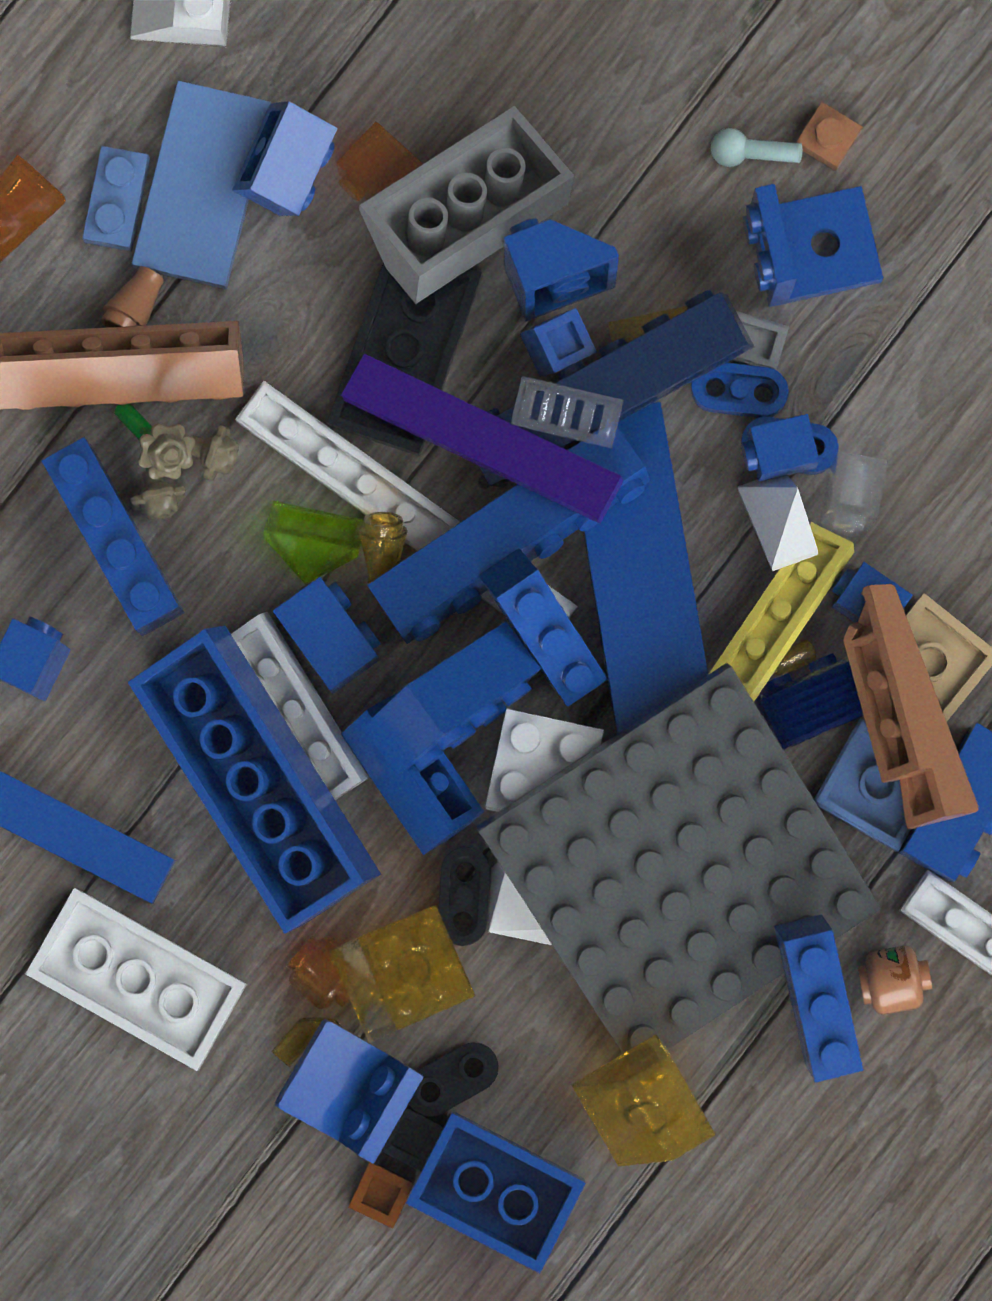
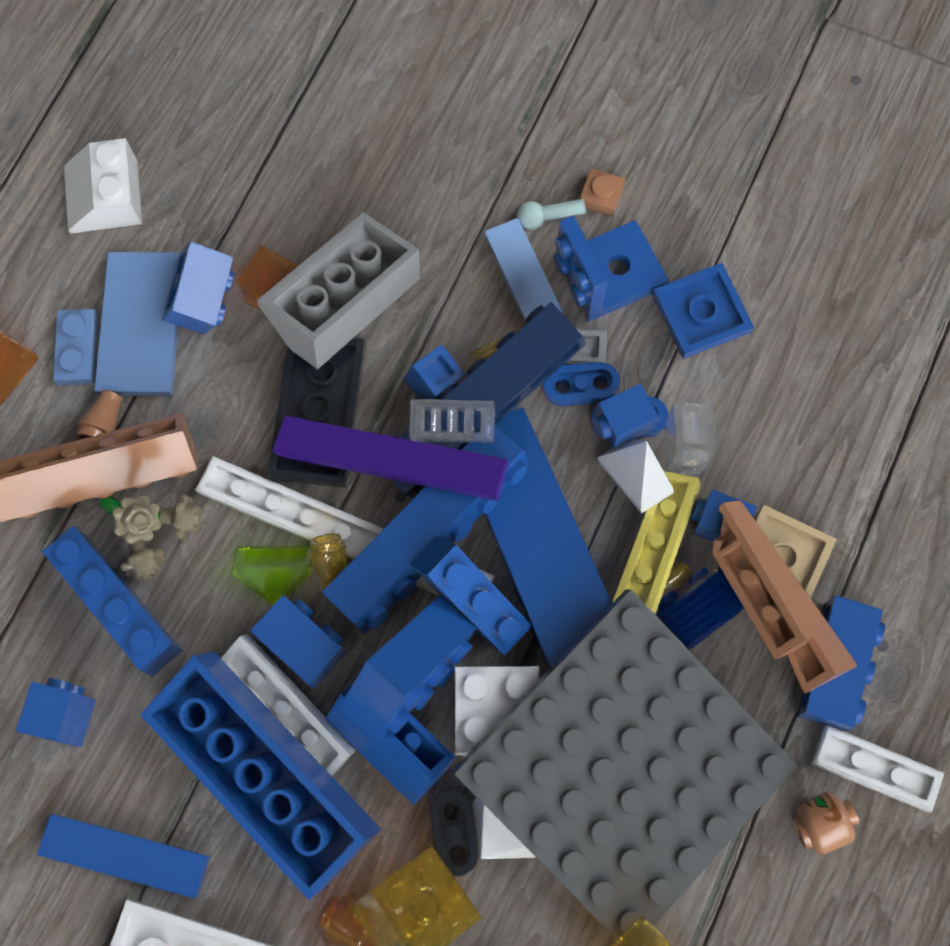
camera: 15 degrees left, 10 degrees down
(556, 266) = (420, 314): blue slope -> none
(701, 223) = (520, 267): none -> light blue tile
(818, 998) = (770, 853): blue brick -> none
(859, 797) = (755, 675): medium blue tile -> none
(915, 327) = (702, 310): none -> blue plate

